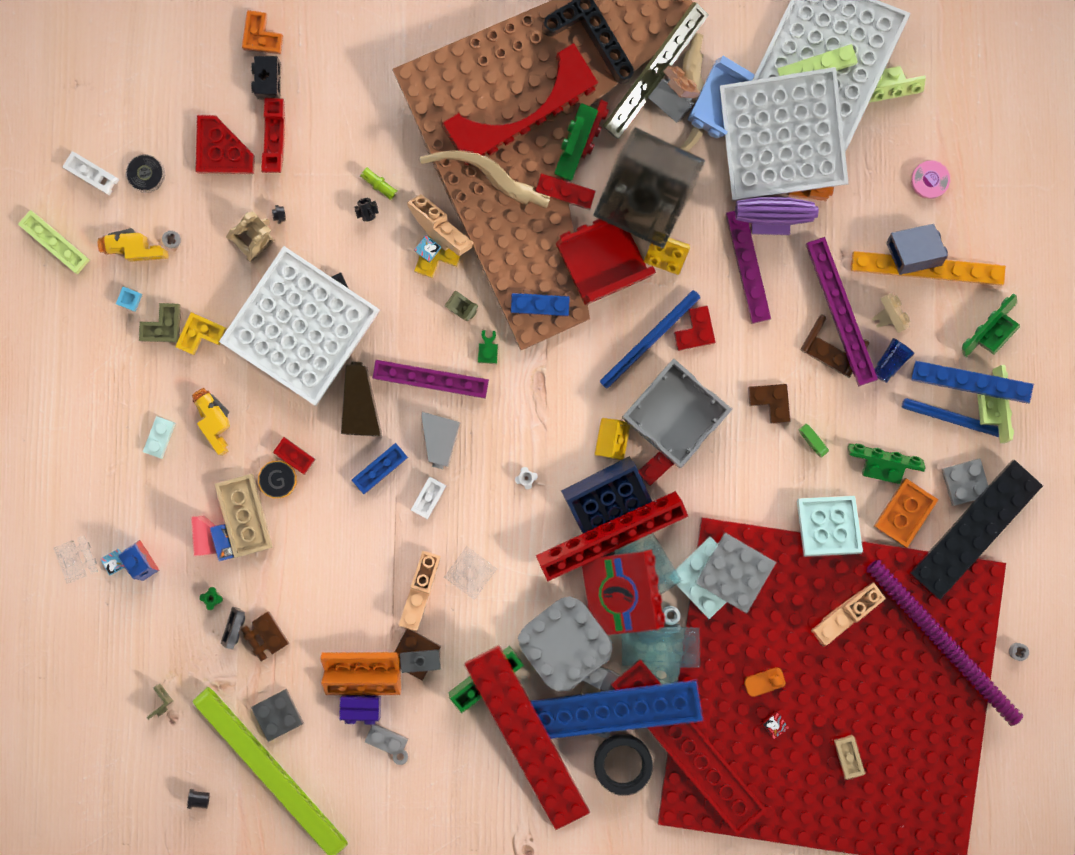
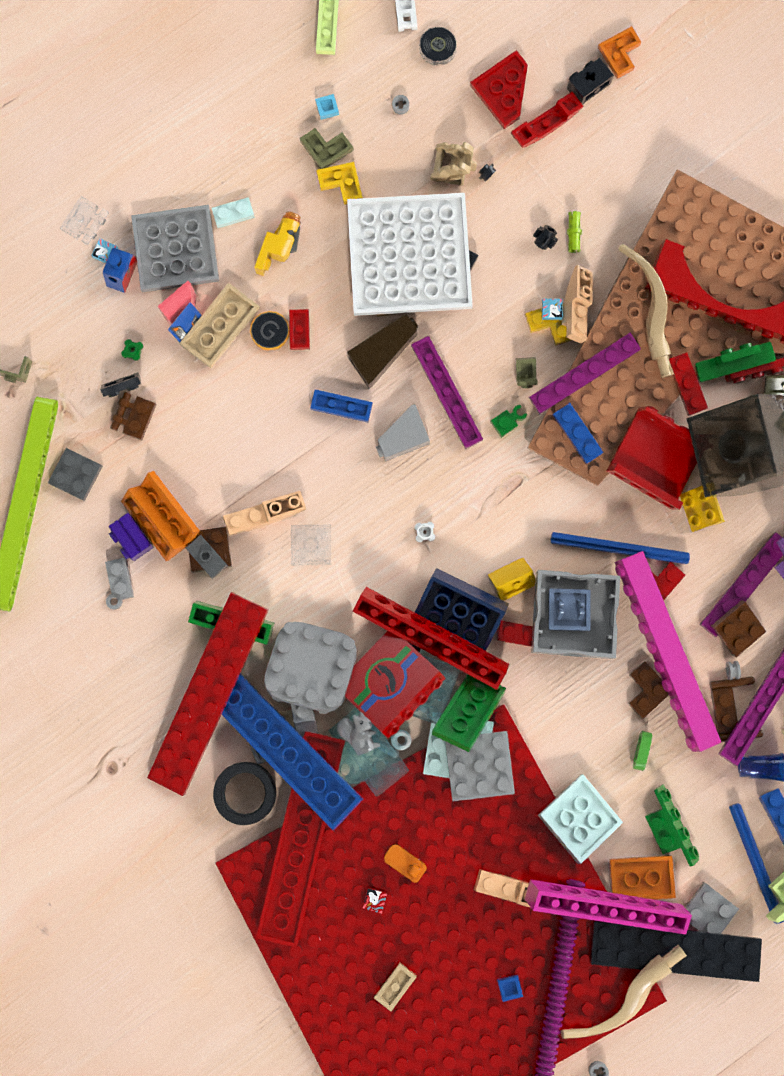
camera: 55 degrees right, 5 degrees down
(132, 244) = (371, 78): yellow plate -> none
(154, 504) = (175, 248): none -> light grey plate
(428, 497) = (347, 463): white plate -> none
(498, 263) = (584, 373): none -> magenta plate
(644, 646) = (358, 733): none -> light grey animal
(669, 415) = (569, 609): none -> sand blue plate
(690, 552) = (468, 713): none -> green plate
(755, 365) = (667, 652): none -> dark pink brick
(777, 297) = (738, 628): none -> reddish brown plate
(805, 326) = (733, 670): none -> light grey bush
(909, 557) = (607, 907): none -> dark pink brick
(912, 672) = (510, 988): none -> blue tile
(986, 582) = (636, 995): none -> tan animal

